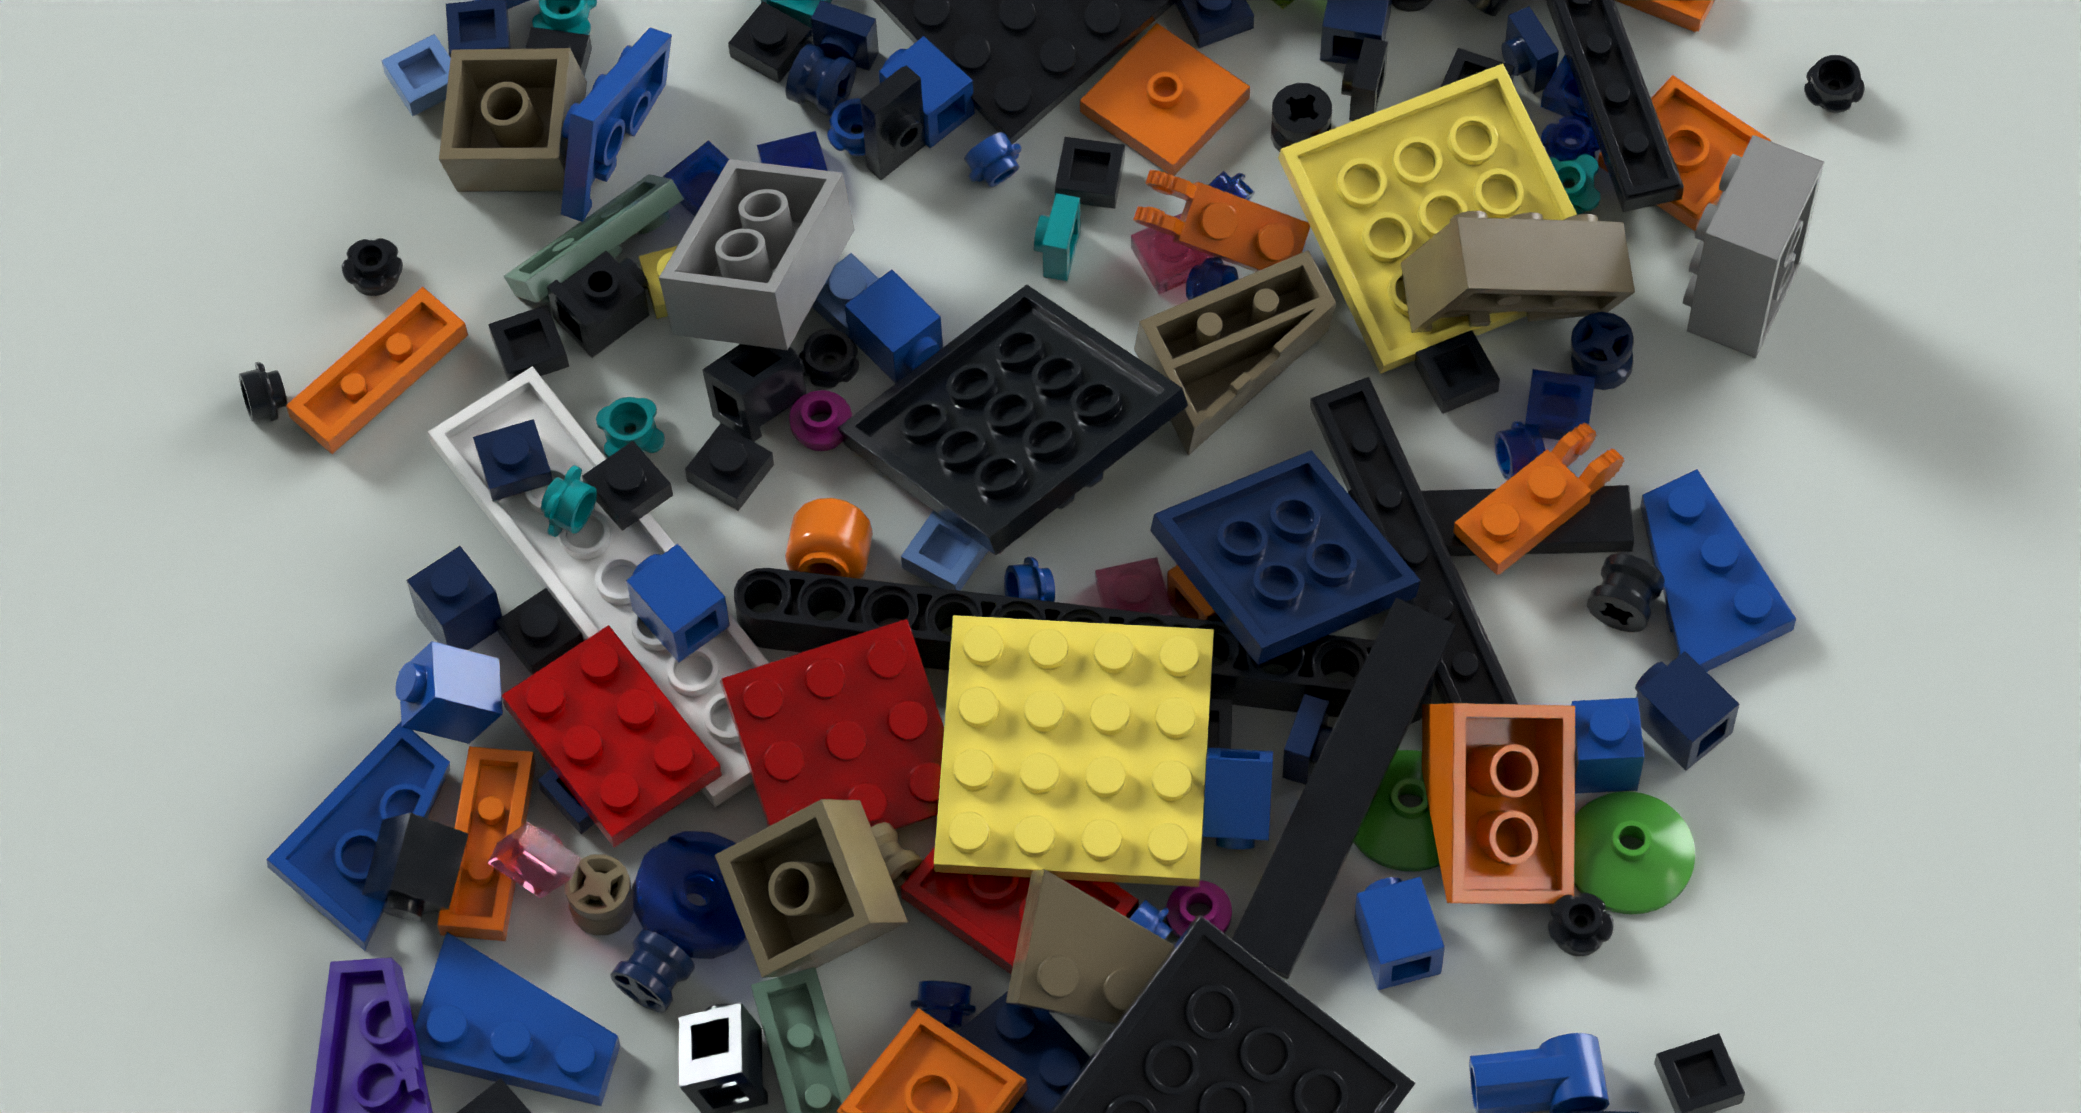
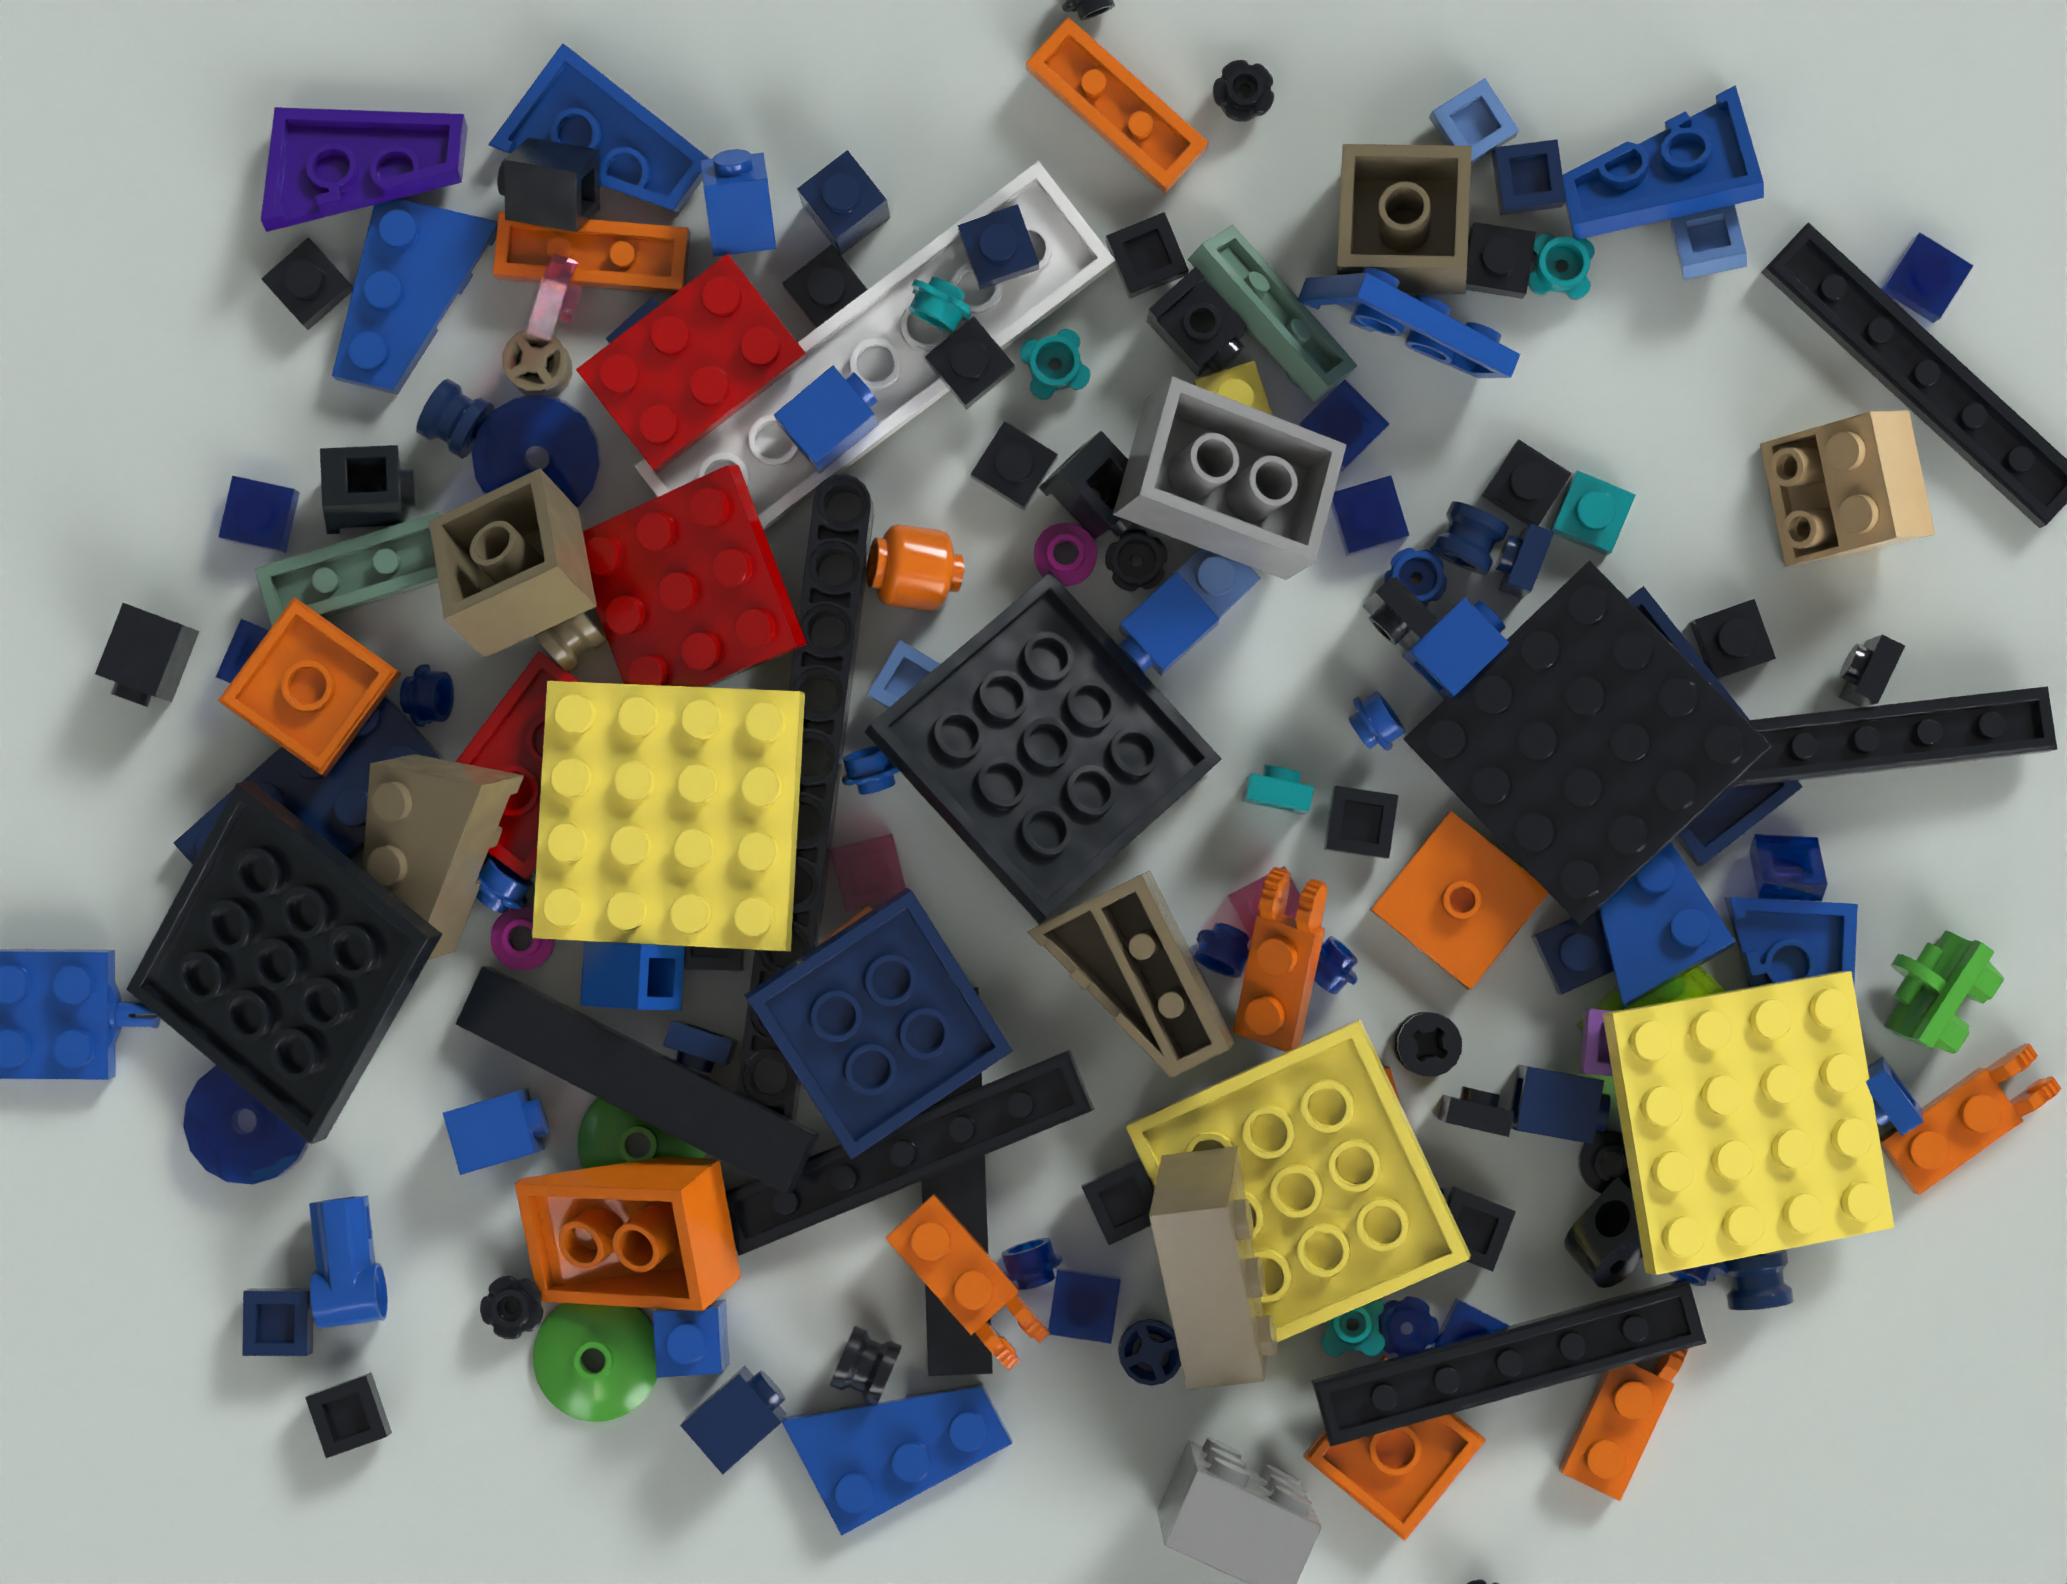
camera: 90 degrees right, 25 degrees up
(1529, 49) = (1515, 1287): dark blue plate -> none

